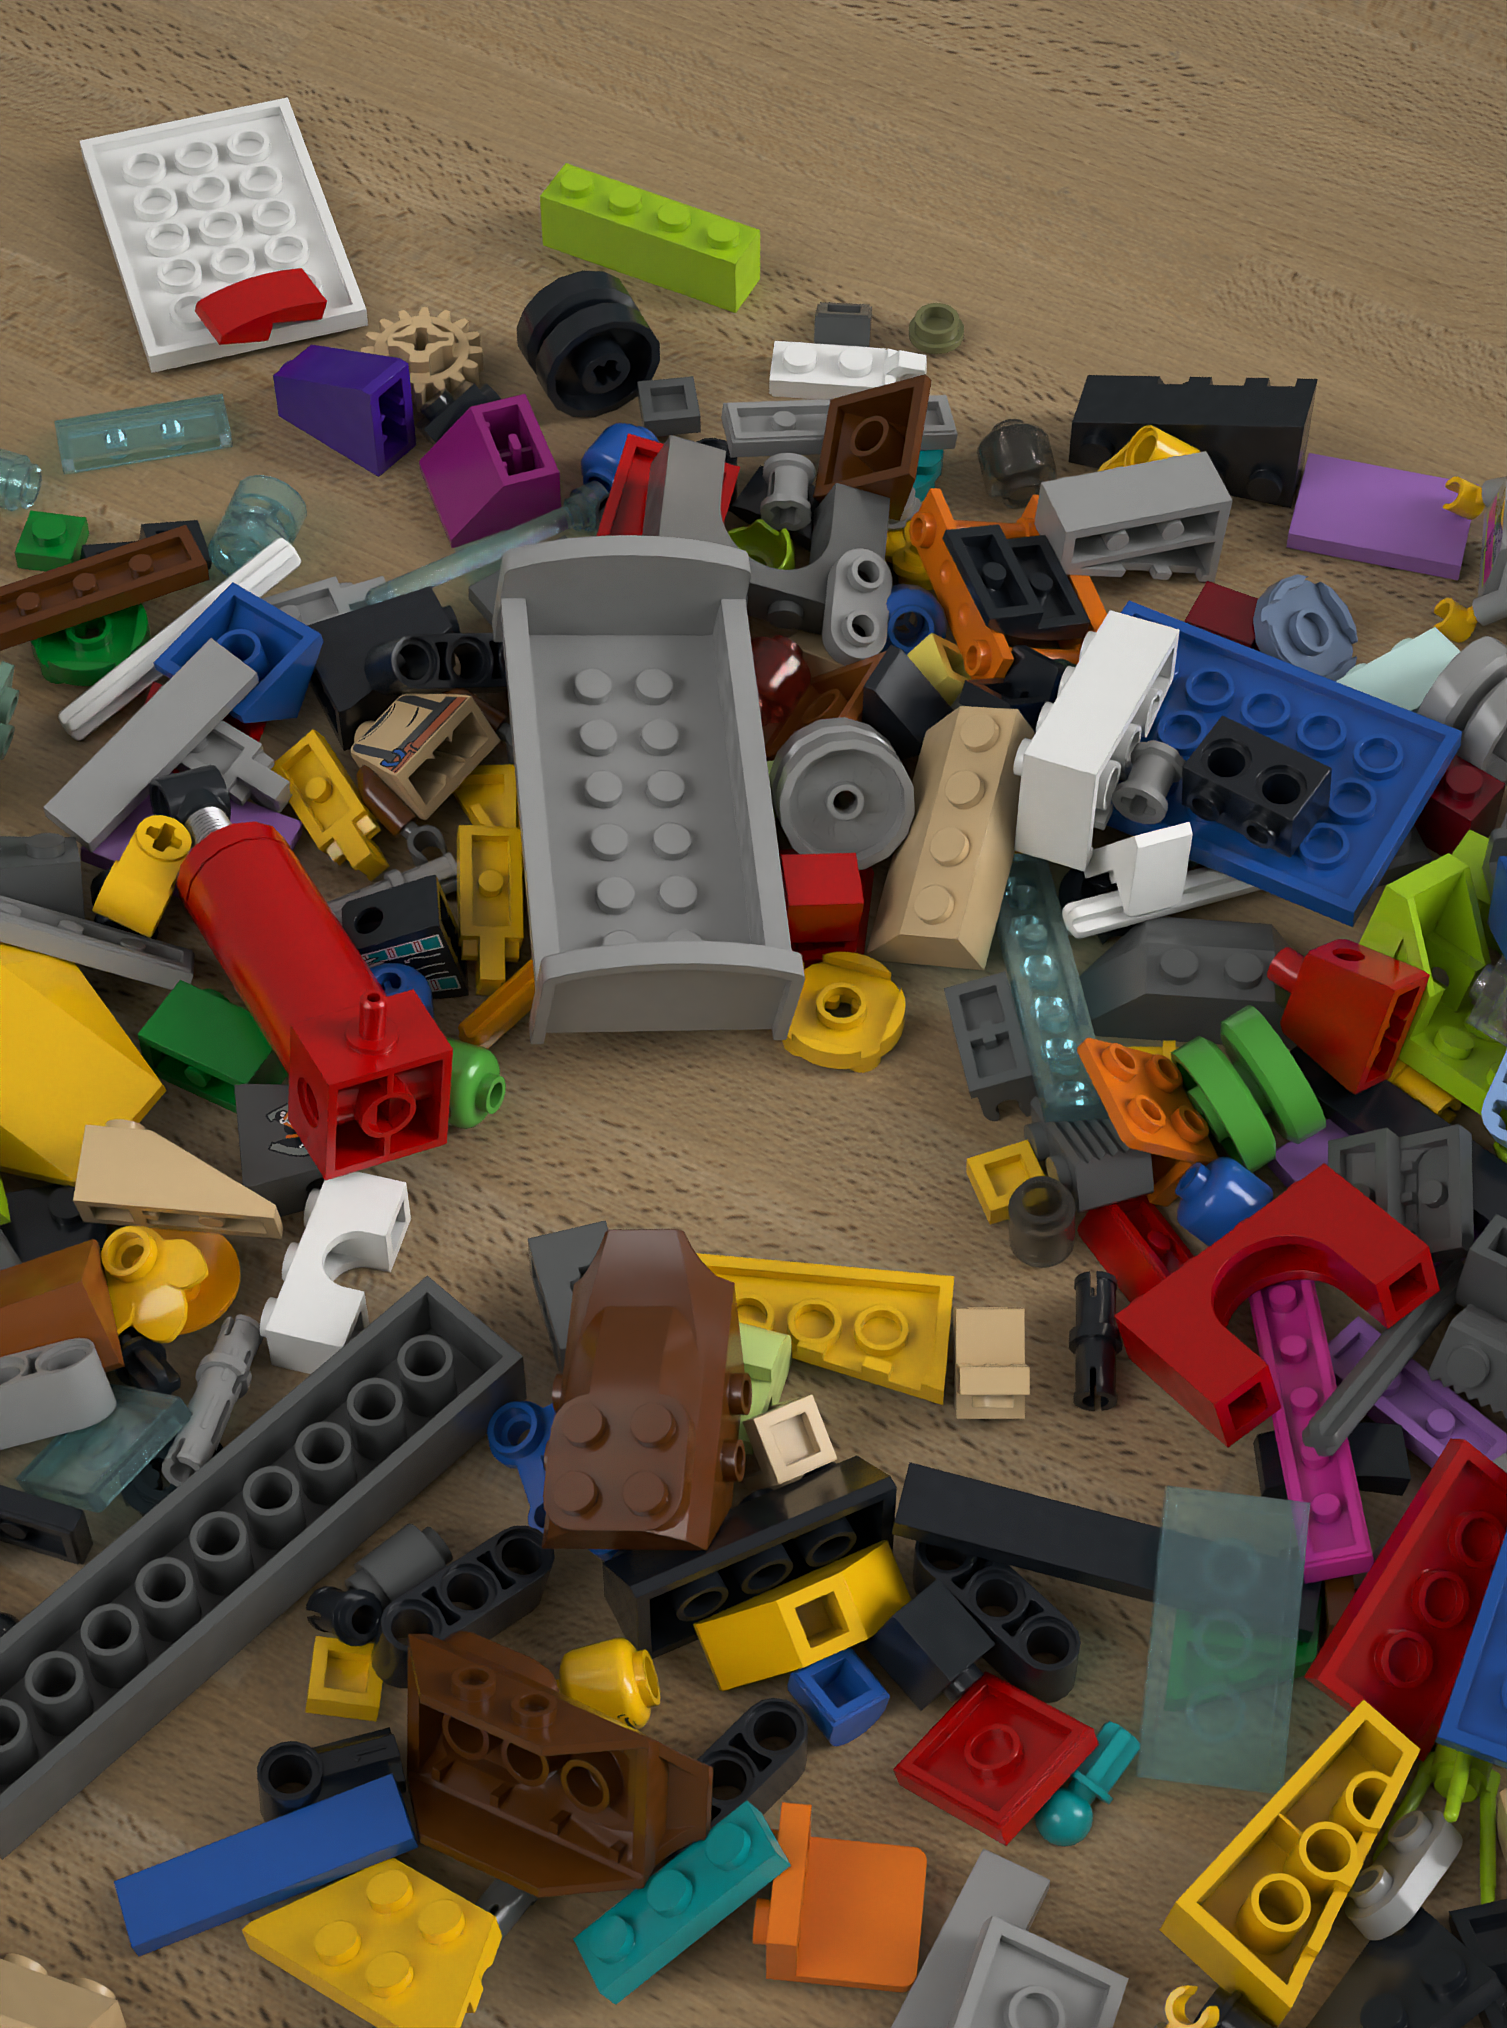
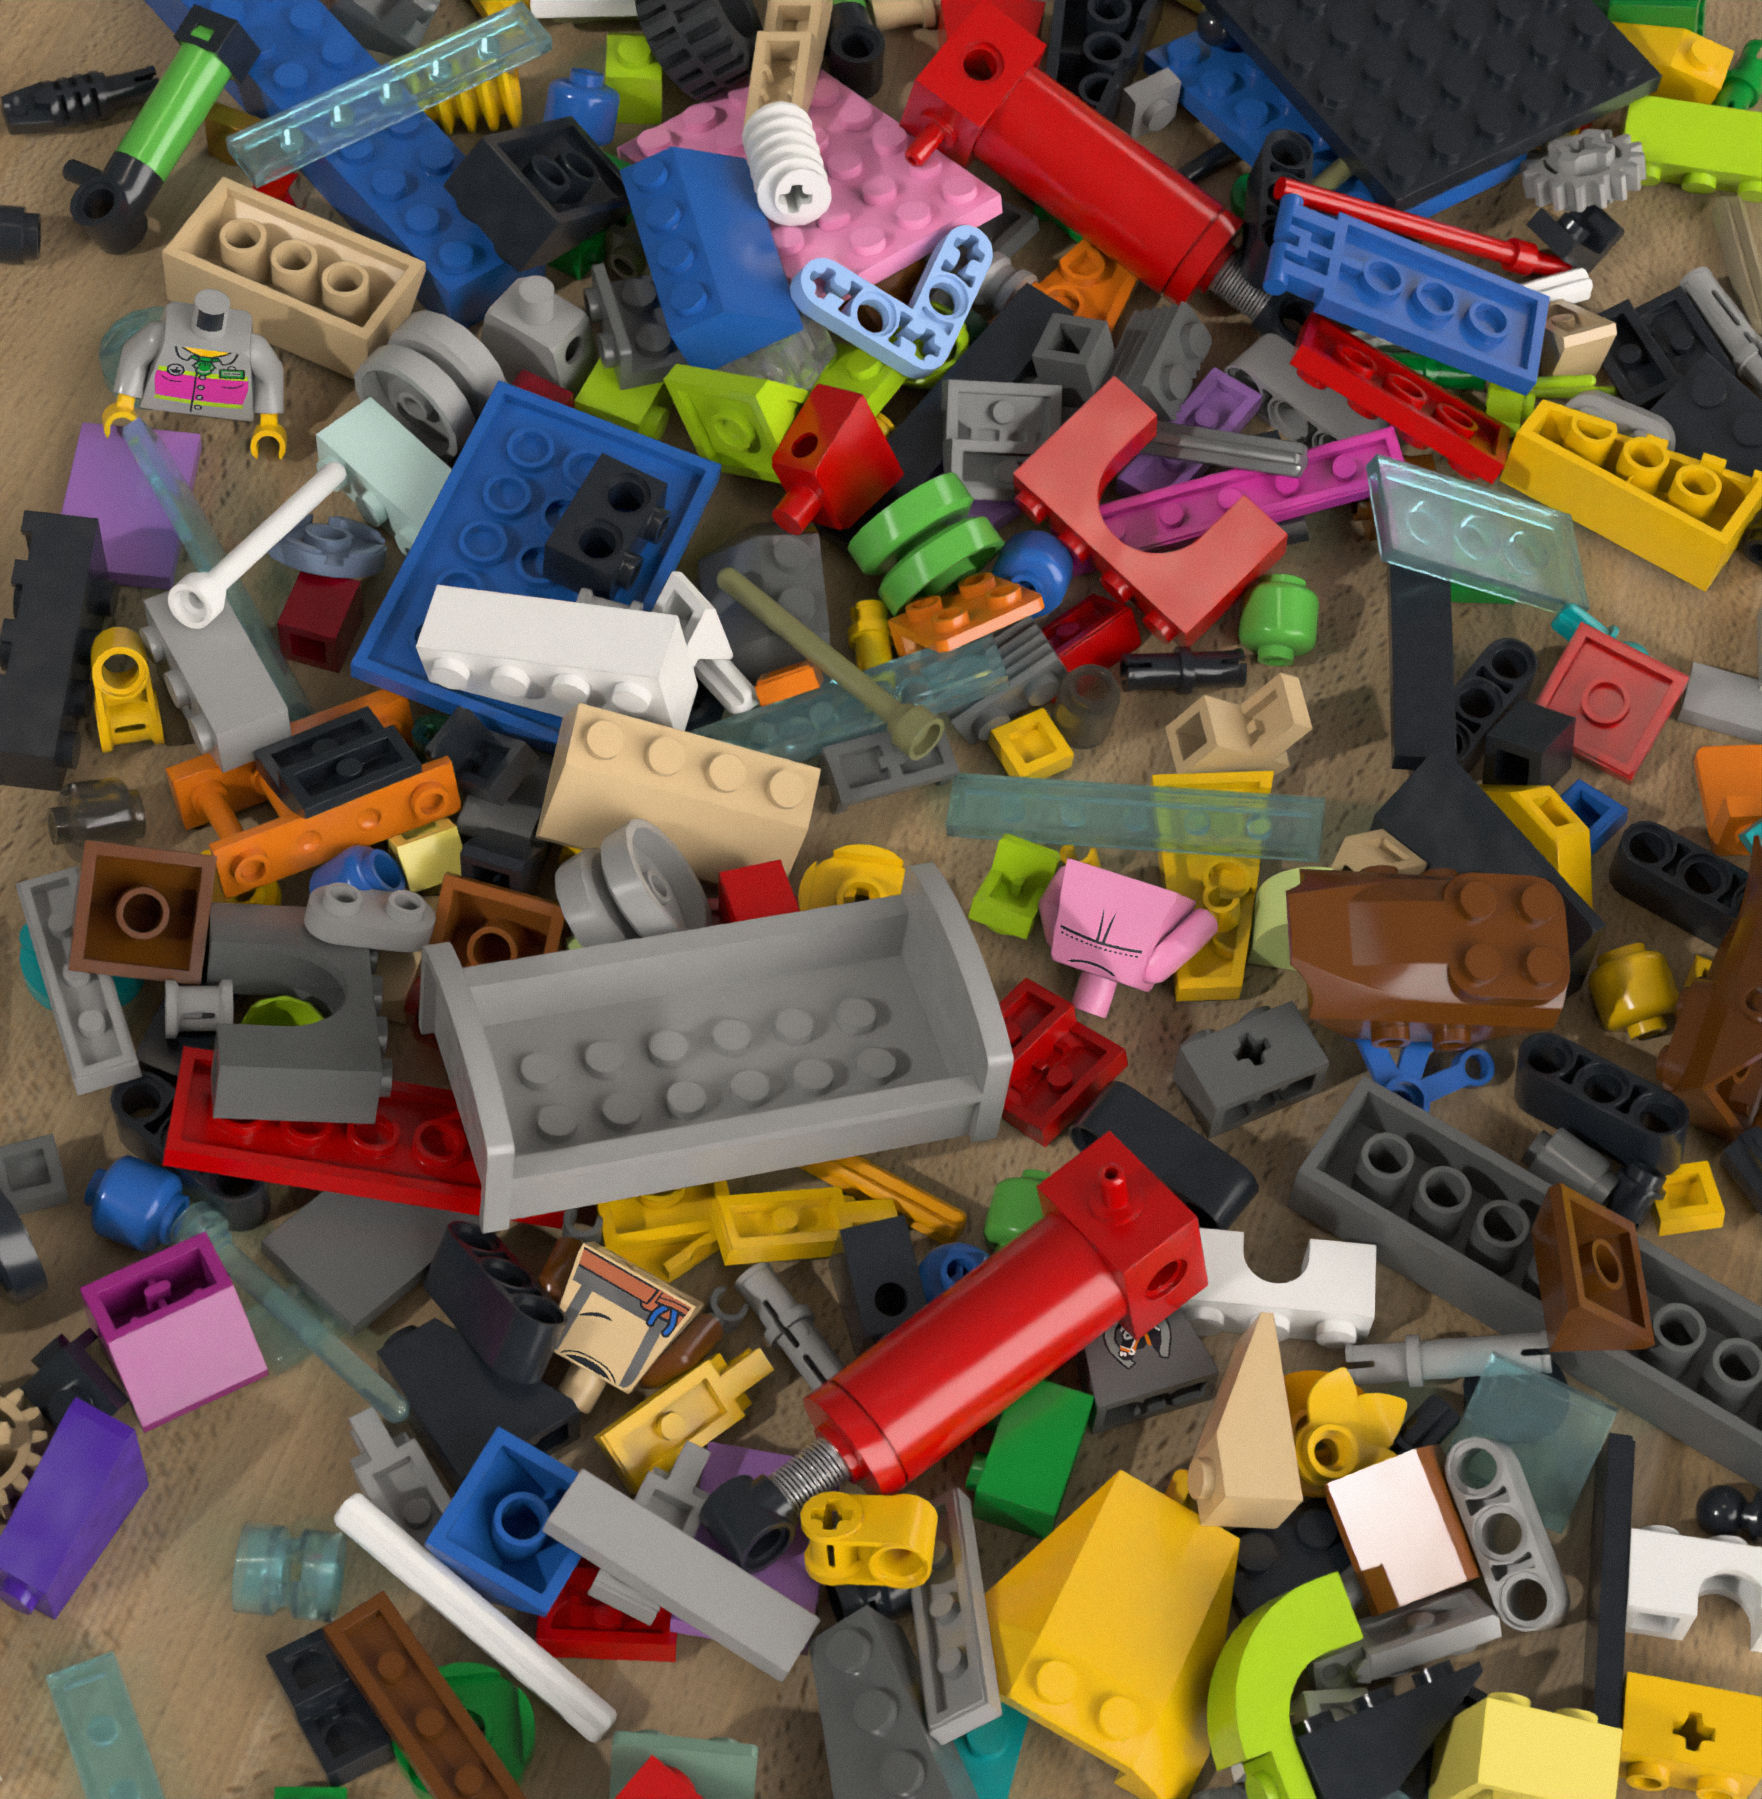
camera: 105 degrees left, 5 degrees up
(226, 1482) = (1589, 1275): none -> reddish brown slope
(498, 1210) = (1183, 1160): none -> black beam
(640, 1133) = (1055, 1062): none -> red slope
(762, 1196) = (1123, 928): none -> bright pink torso
(830, 1134) = (1014, 886): none -> lime bracket
(893, 1249) = (1137, 817): none -> clear light blue tile
(997, 1020) = (912, 727): none -> olive piece
(1092, 958) = (788, 682): none -> orange tile
(1148, 1438) = (1278, 619): none -> bright green head
(1194, 475) = (202, 595): none -> white piece
(1287, 547) = (207, 552): none -> clear light blue tile

